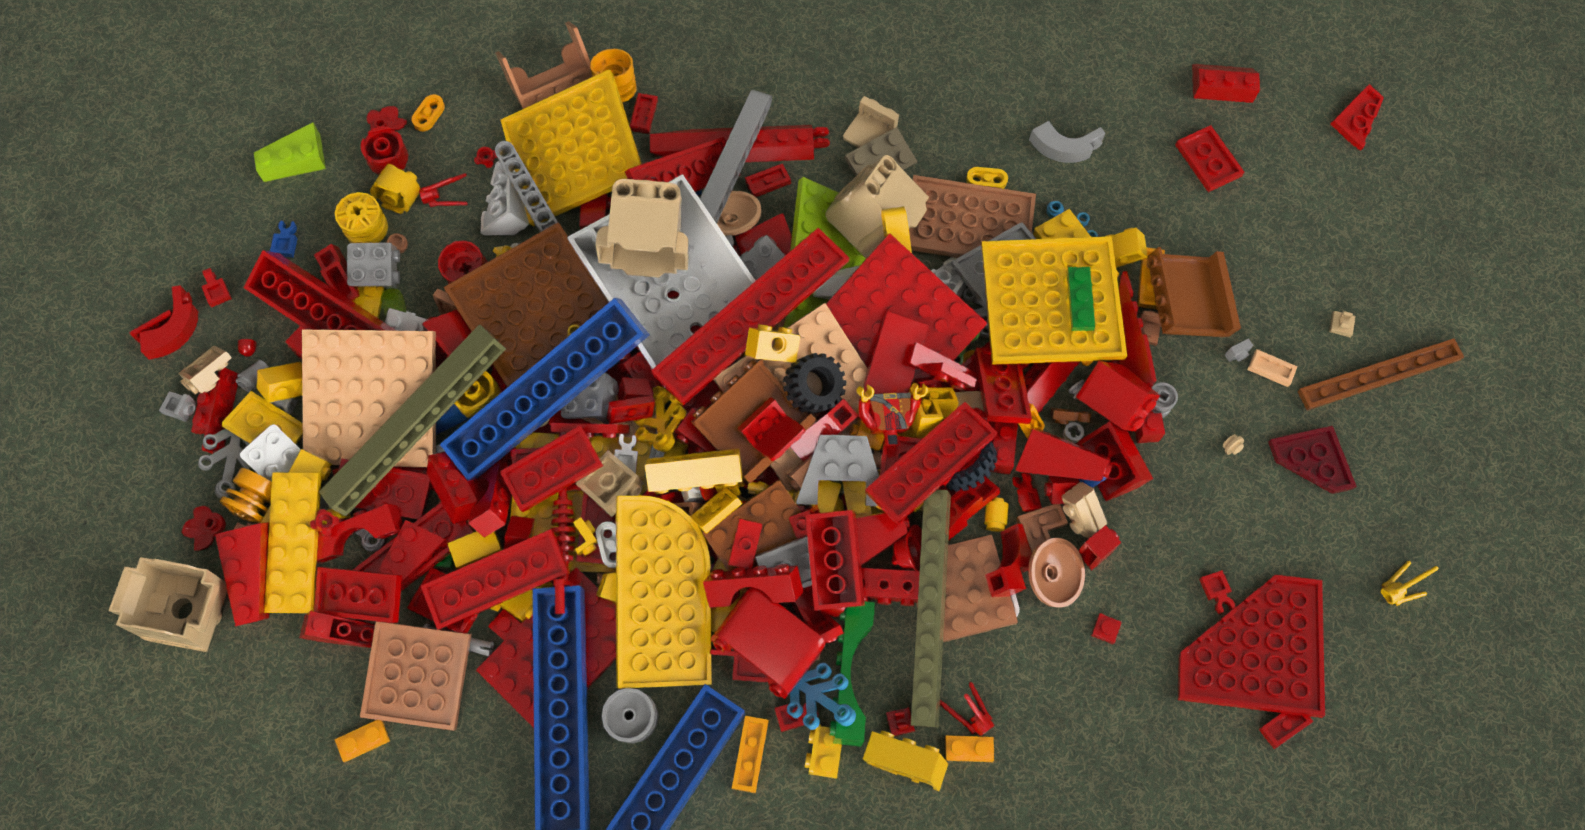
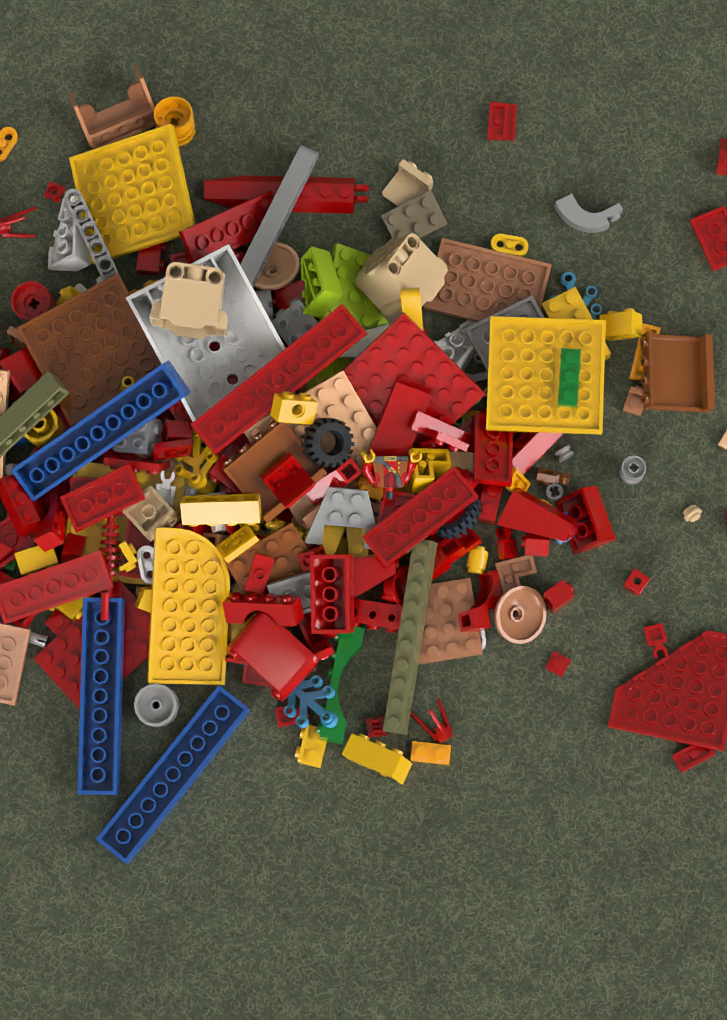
camera: 10 degrees right, 10 degrees up
(643, 113) = (200, 157): red plate -> none
(750, 754) = (252, 743): light orange plate -> none
(768, 180) = (308, 233): red plate -> none
(788, 214) = (321, 282): none -> lime wedge
(962, 60) = (502, 121): none -> red plate
(1084, 510) = (550, 563): tan brick -> none
(1118, 395) = (593, 464): red slope -> none
(1137, 345) = (614, 434): red wedge -> none
(1152, 429) = (620, 492): red brick -> none
(1177, 526) = (636, 589): none -> red piece
(1239, 351) = (712, 429): light grey plate -> none

